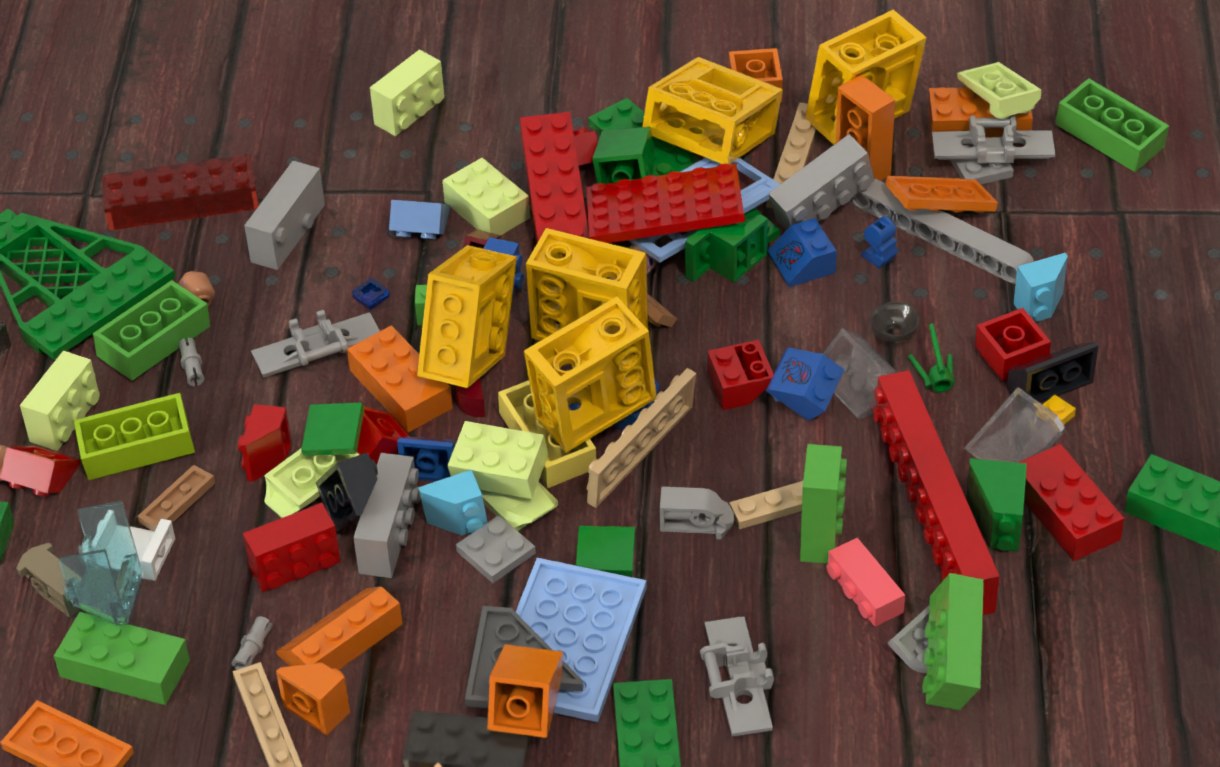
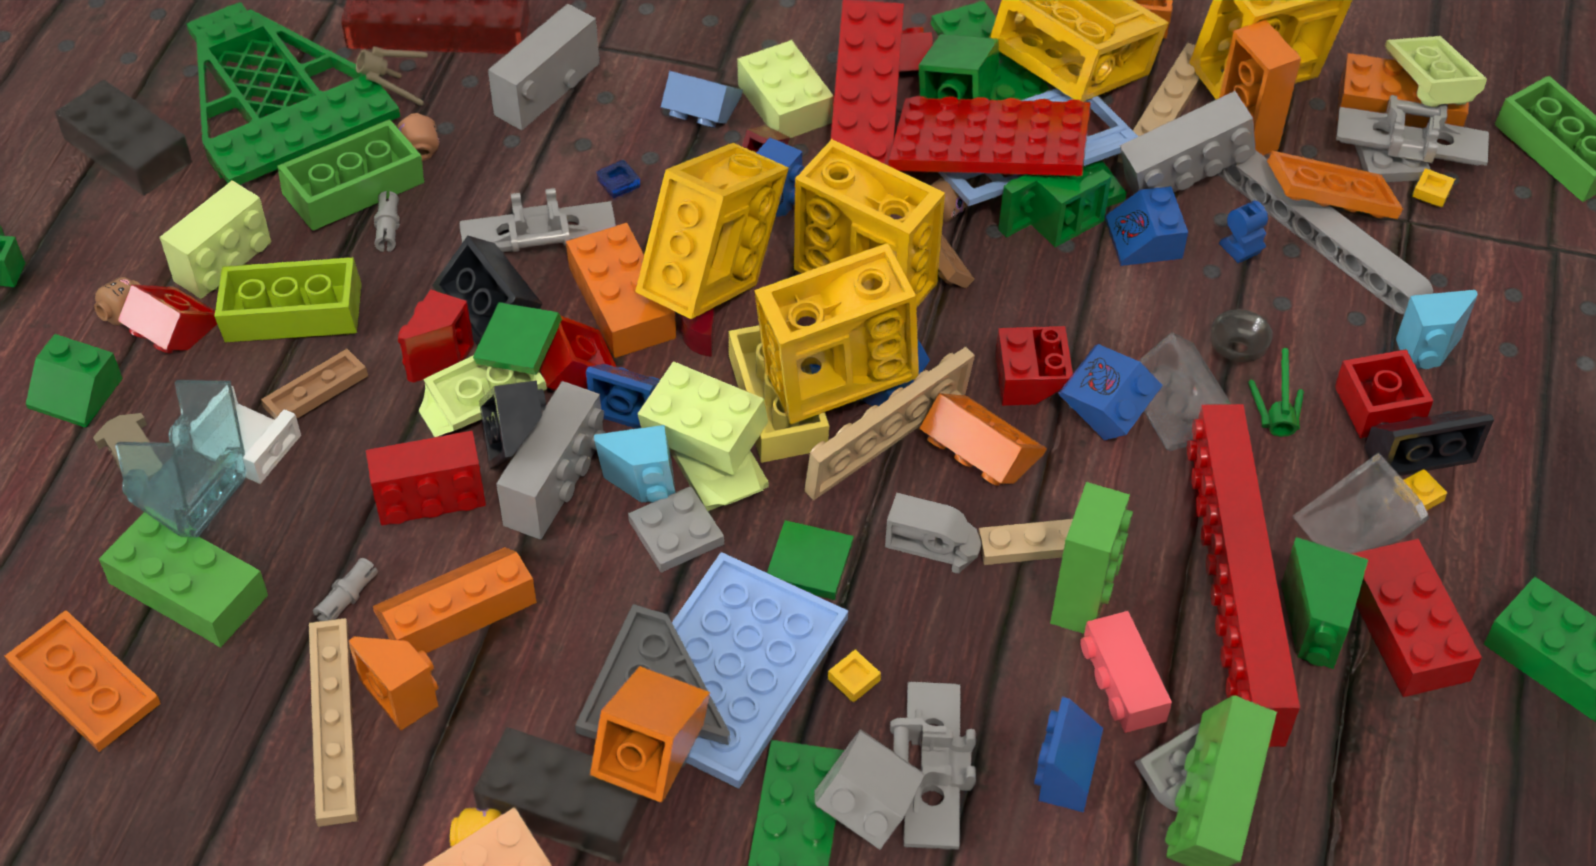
camera: 10 degrees right, 5 degrees up
(144, 239) = (375, 66): none -> dark tan plant
(288, 387) = (483, 279): none -> black slope
(663, 626) = (854, 675): none -> yellow plate
(698, 697) = (869, 789): none -> light grey slope
(713, 437) = (980, 438): none -> orange slope
(839, 647) = (1068, 756): none -> blue slope
(1018, 182) = (1433, 187): none -> yellow plate

